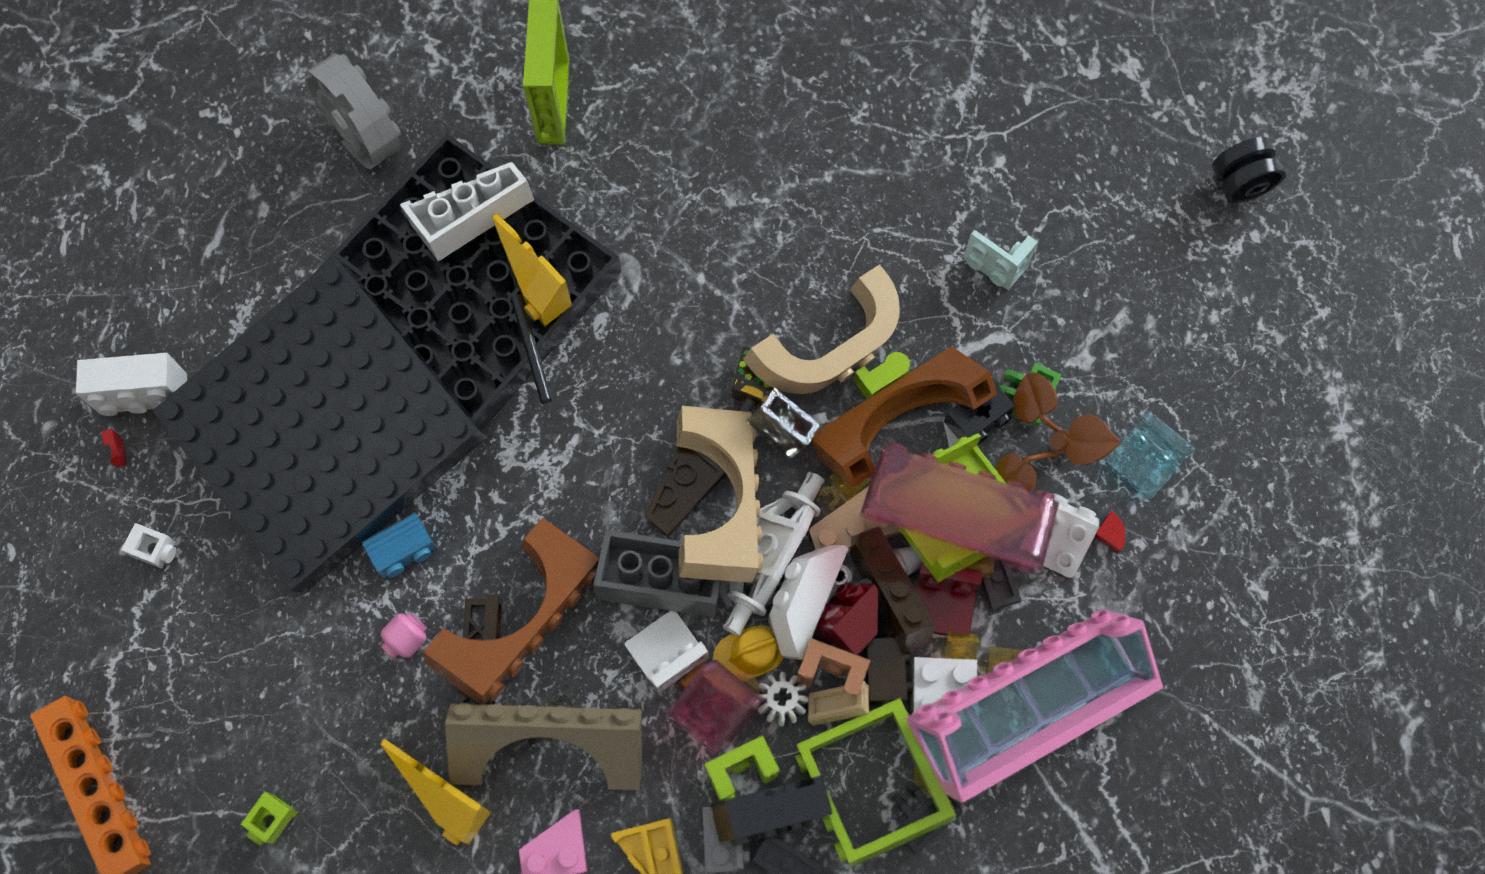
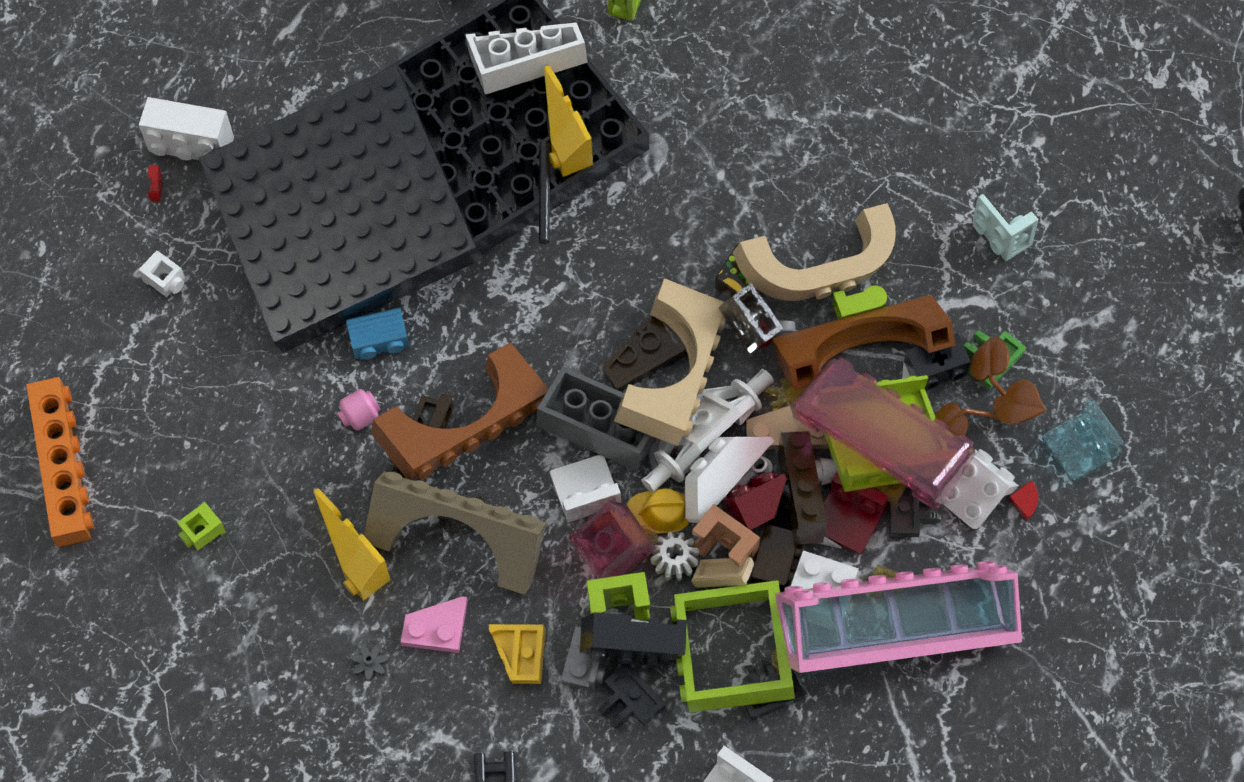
camera: 20 degrees right, 5 degrees down
(961, 646) = (851, 555): clear yellow plate -> none

